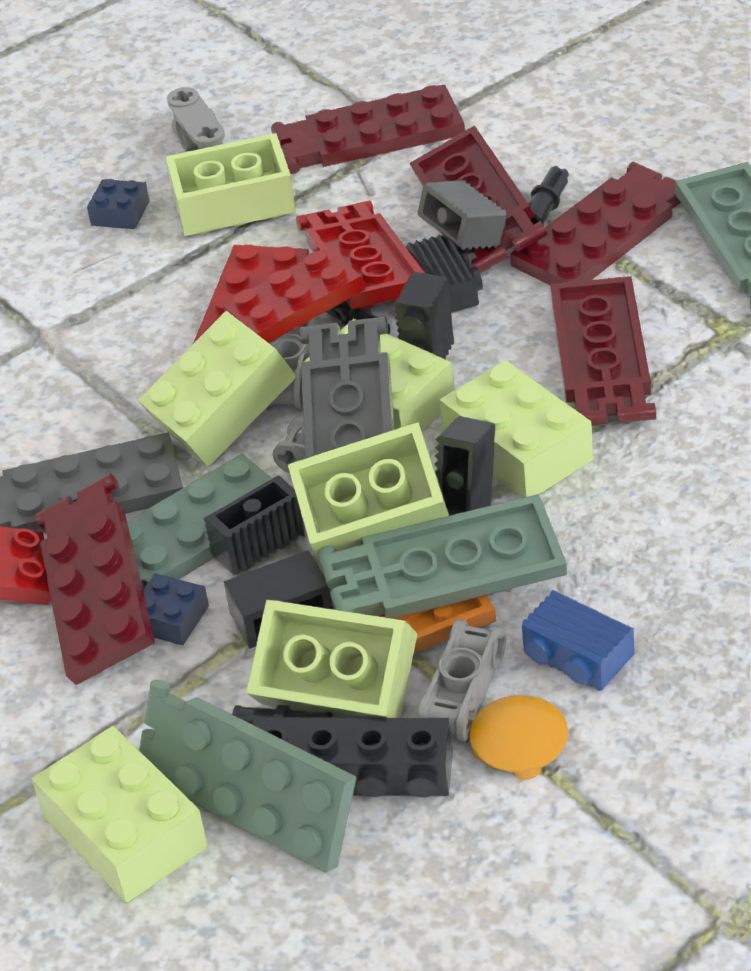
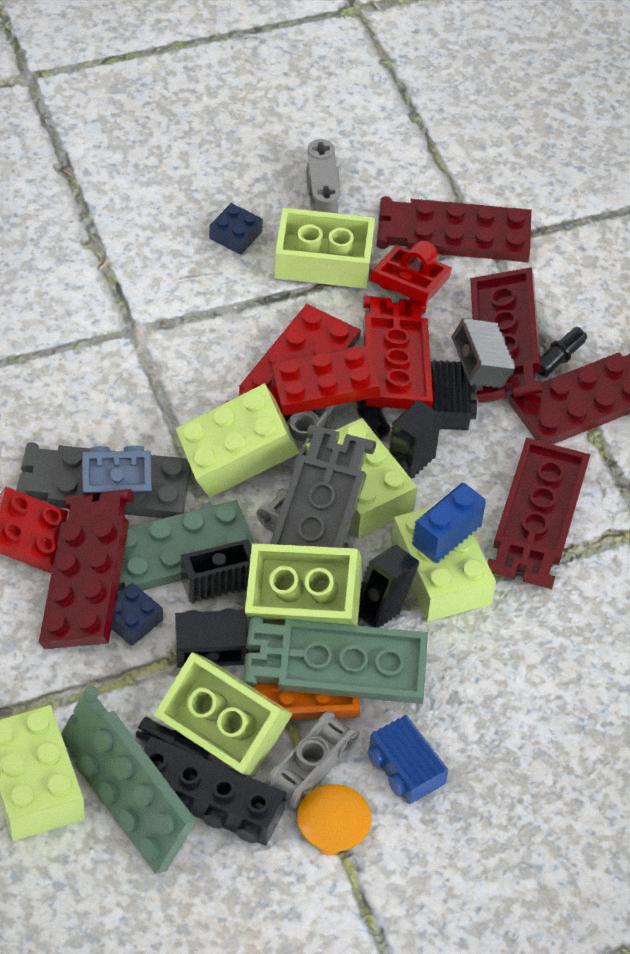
camera: 10 degrees right, 10 degrees up
(84, 461) = (116, 470): none -> sand blue bracket
(327, 180) = (409, 276): none -> red plate
(509, 374) = (449, 522): none -> blue brick

